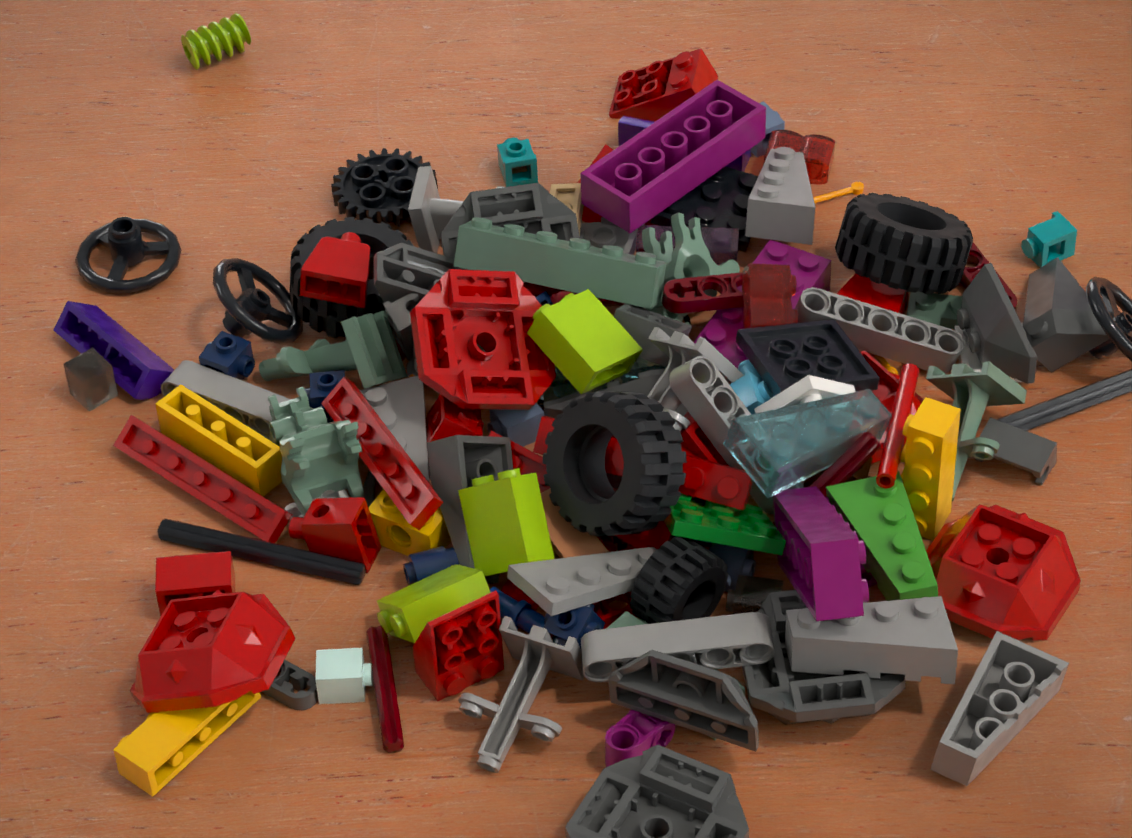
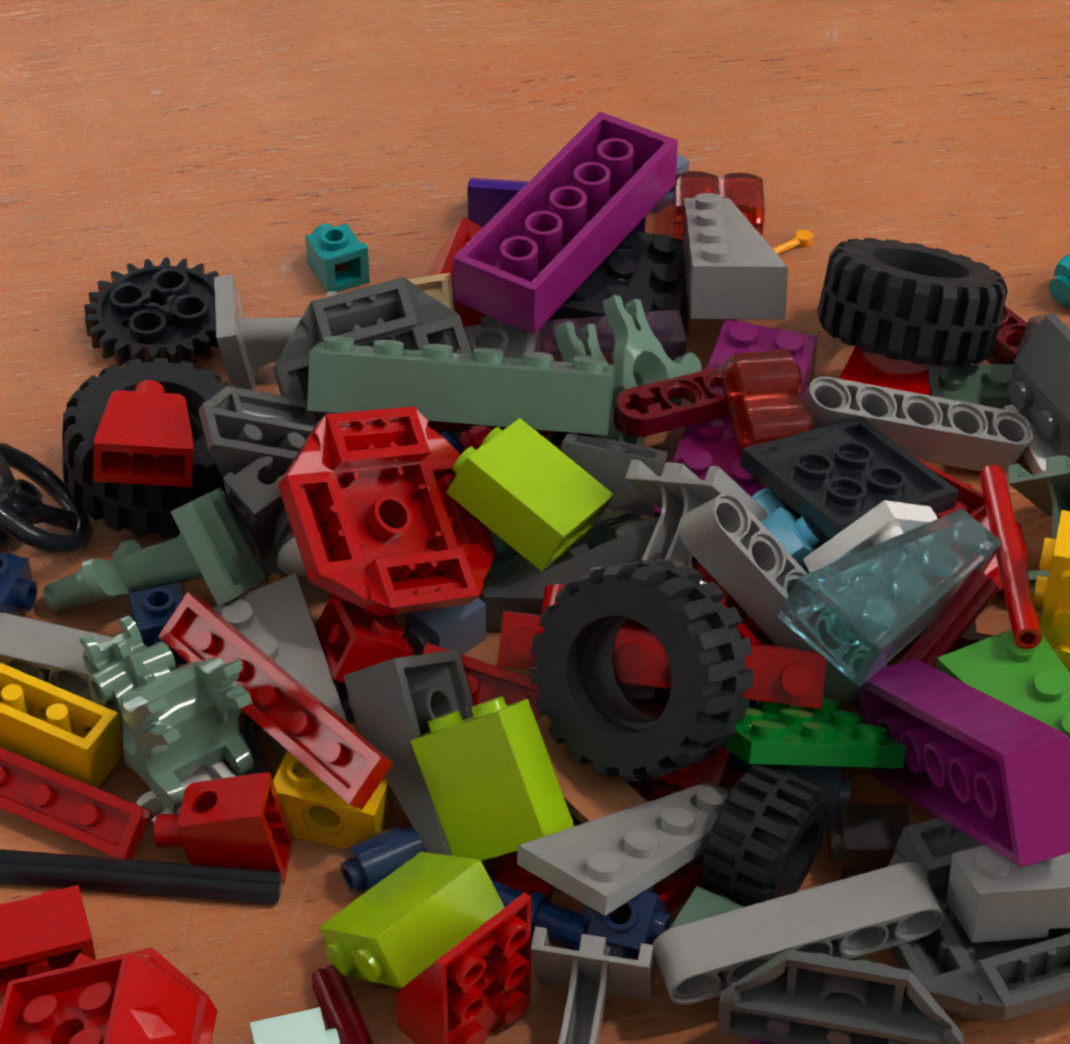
camera: 15 degrees left, 0 degrees up
(661, 86) = (507, 135): red slope -> none

